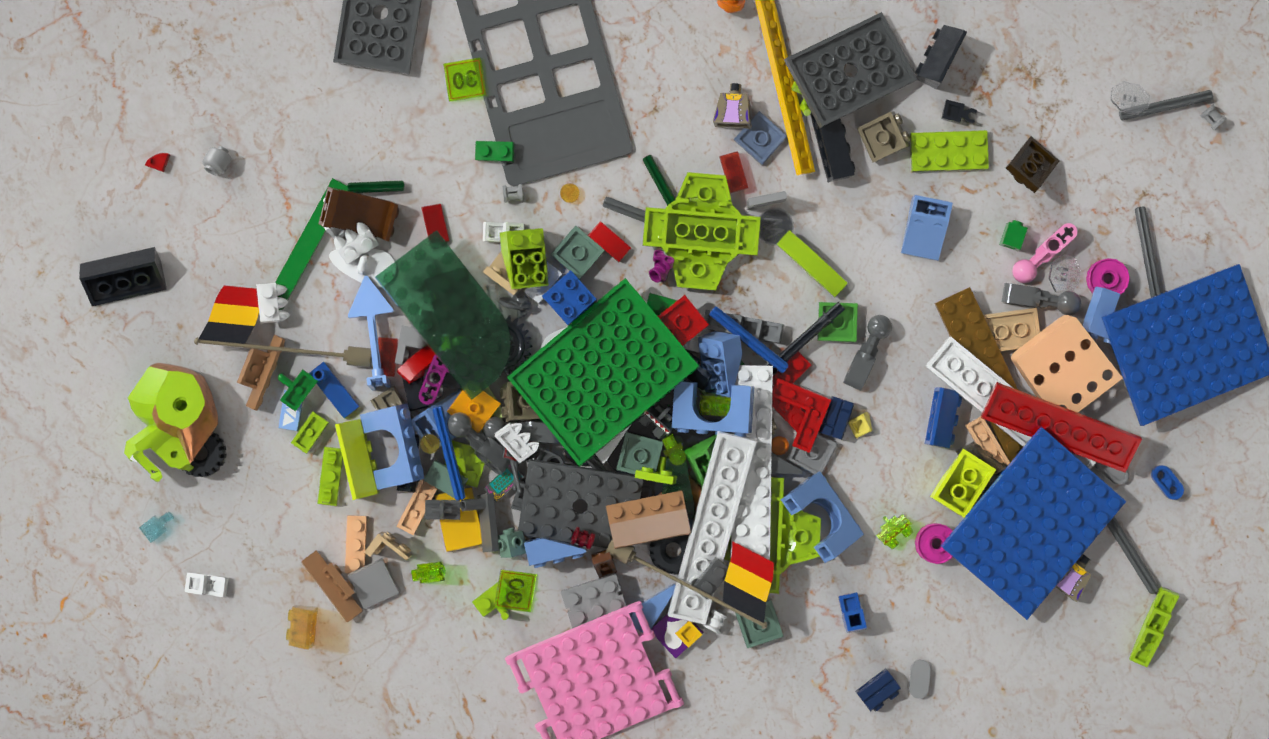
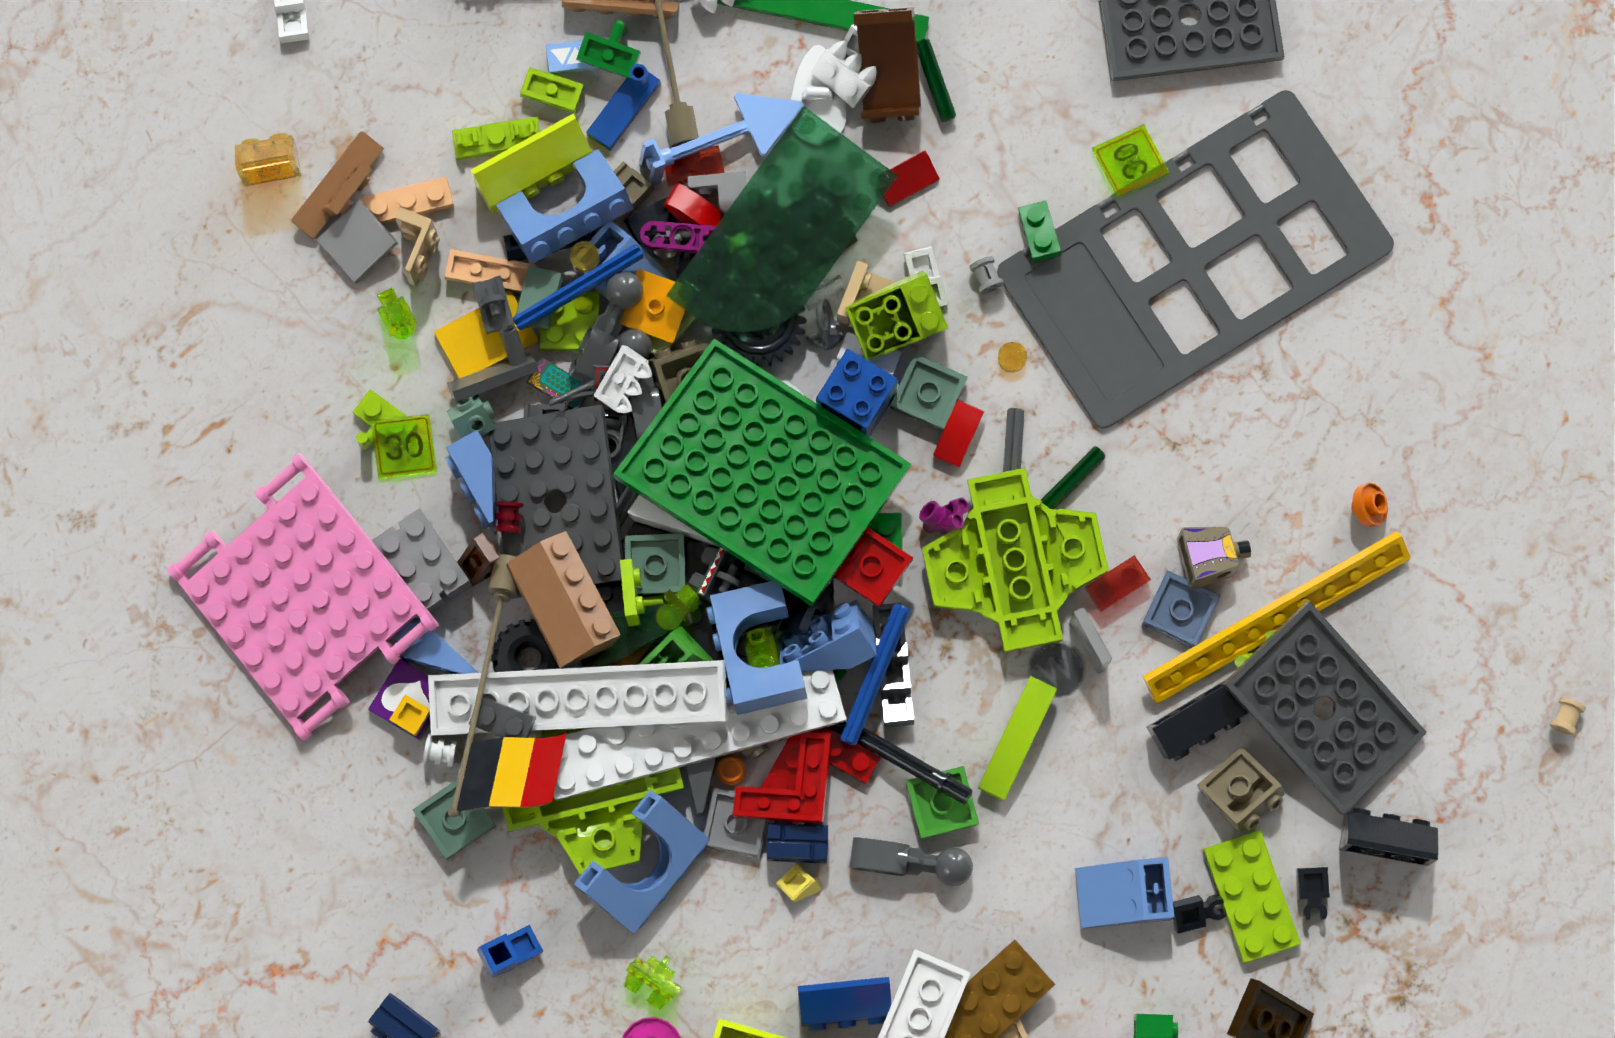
camera: 80 degrees right, 10 degrees down
(949, 189) = (1193, 912): none -> black plate

